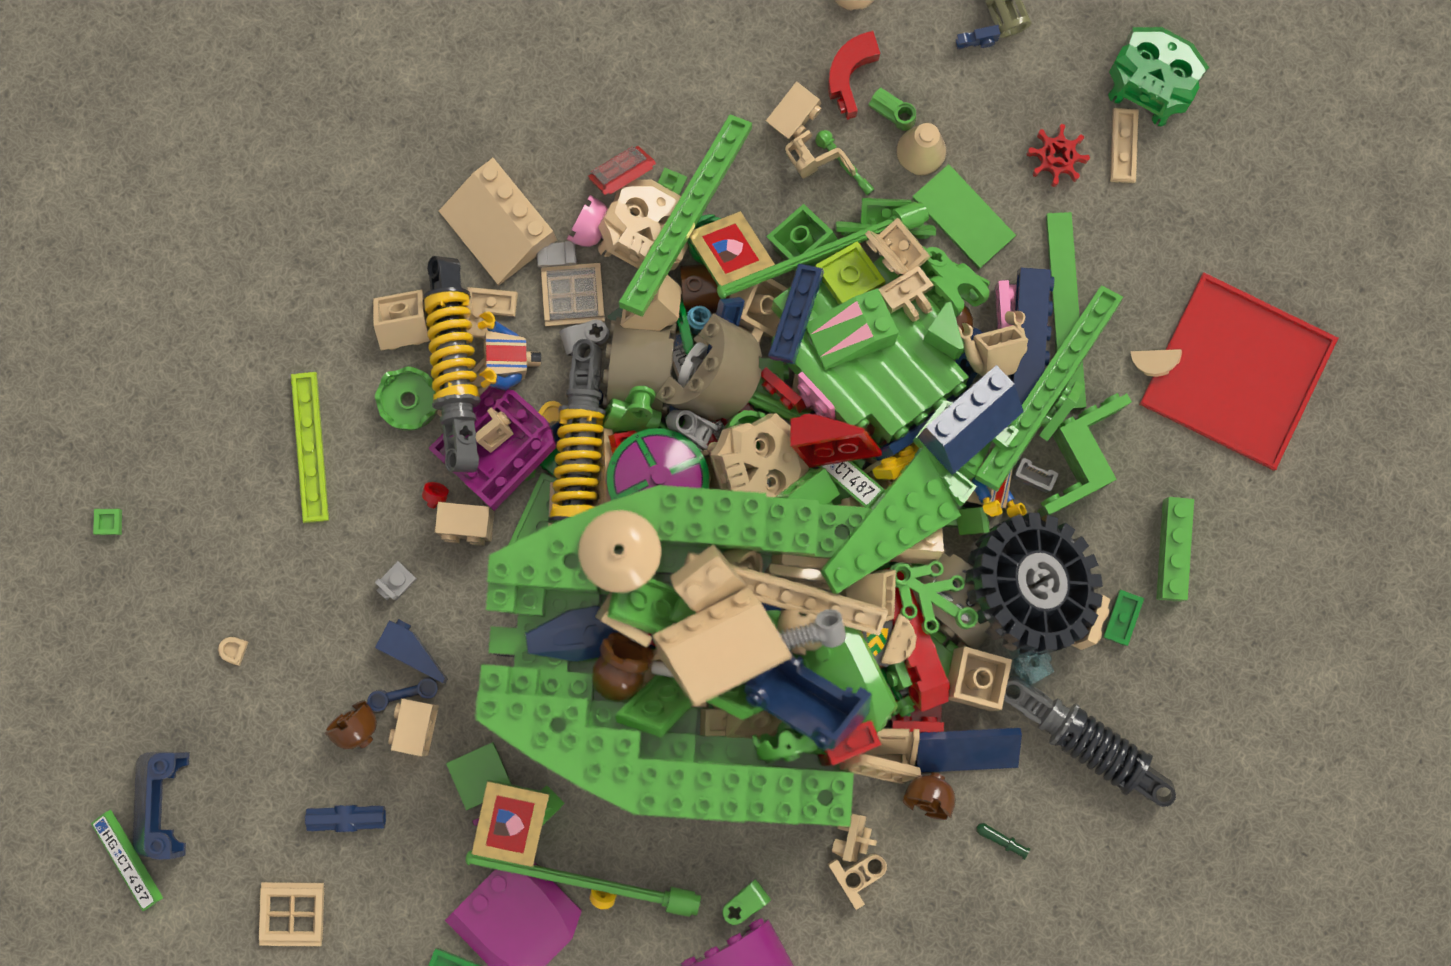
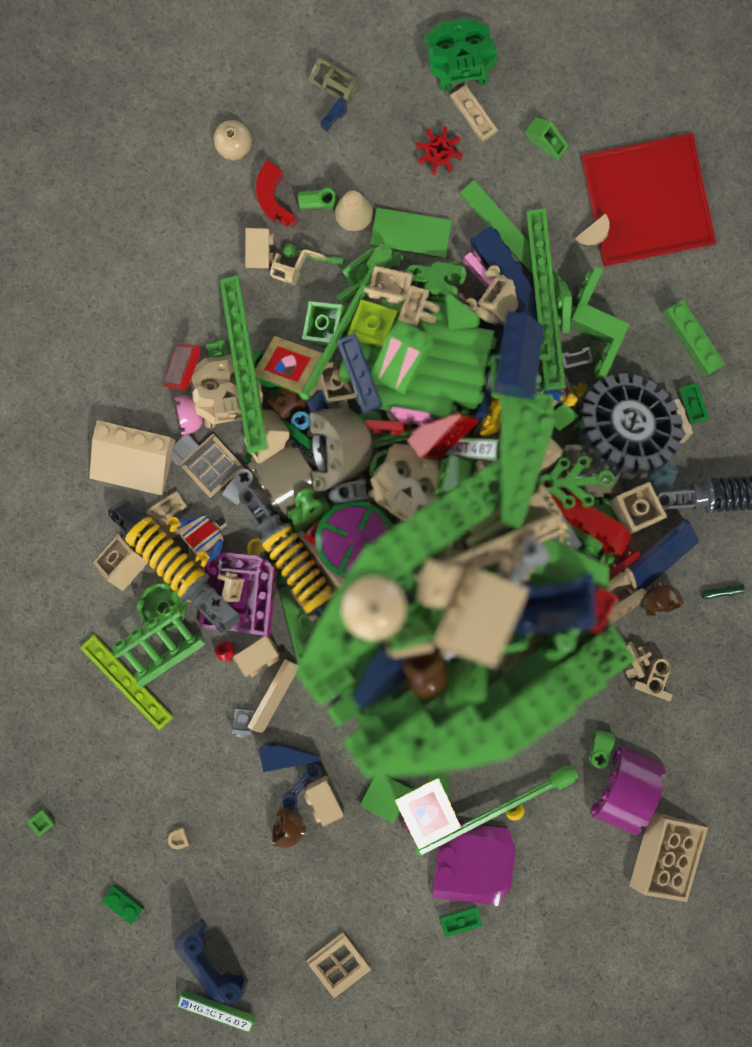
camera: 35 degrees left, 5 degrees up
(121, 672) = (122, 904): none -> green plate
(345, 818) = (326, 884): dark blue piece -> none
(368, 456) = (162, 662): none -> bright green fence
(444, 580) = (273, 696): none -> tan tile
(900, 643) = (578, 525): tan tile -> none
(1180, 227) = (546, 137): none -> bright green slope

